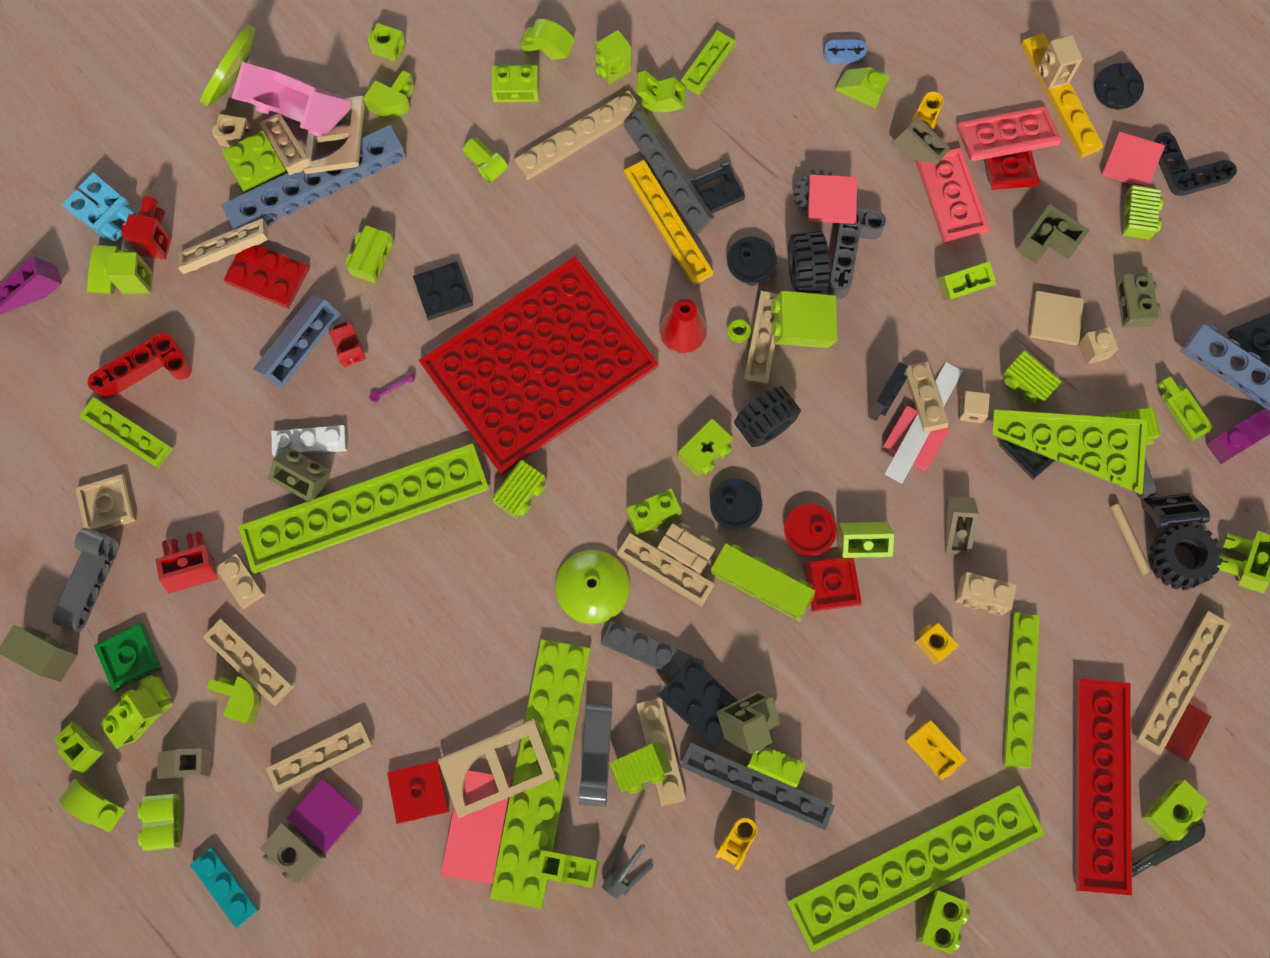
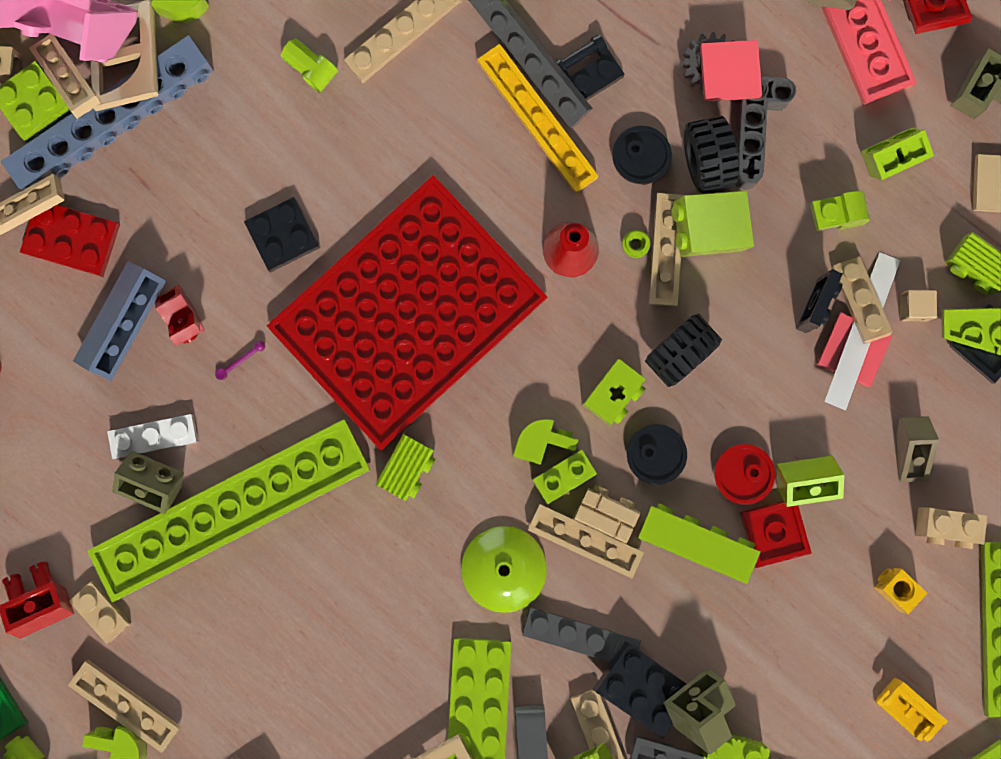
camera: 10 degrees left, 10 degrees up
(369, 254) = (188, 200): lime brick -> none
(634, 477) = (535, 438): none -> lime brick
(917, 321) = (840, 211): none -> lime brick

